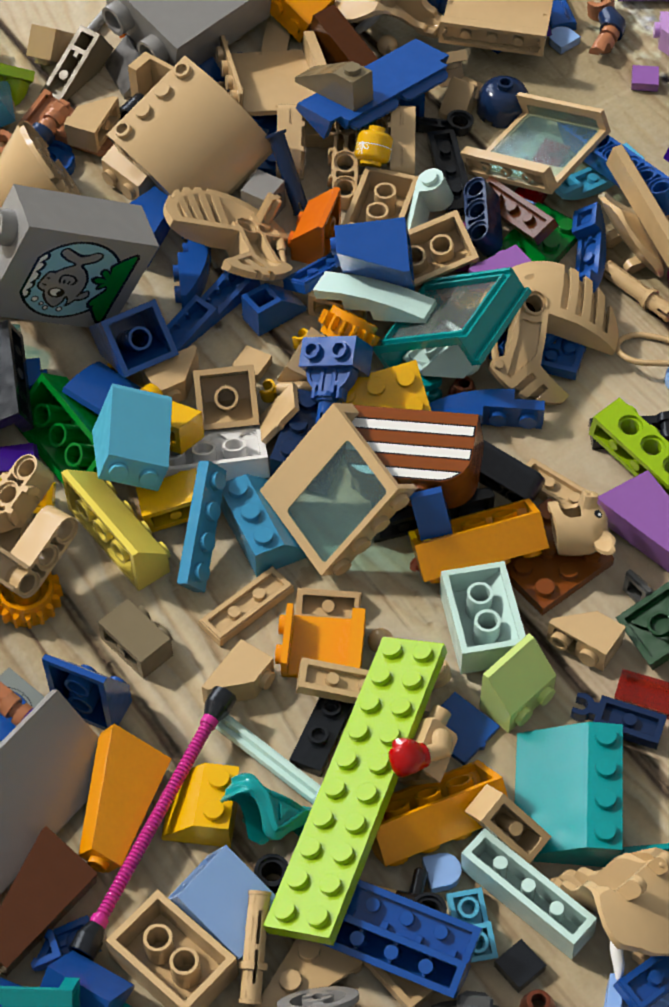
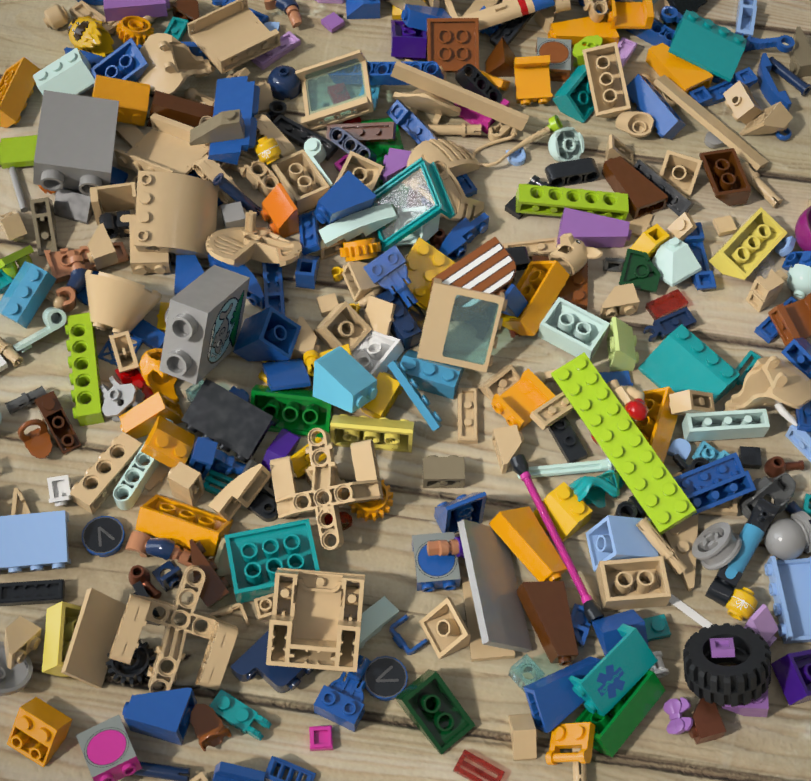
camera: 50 degrees left, 5 degrees up
(550, 65) = (288, 43): none -> lavender tile

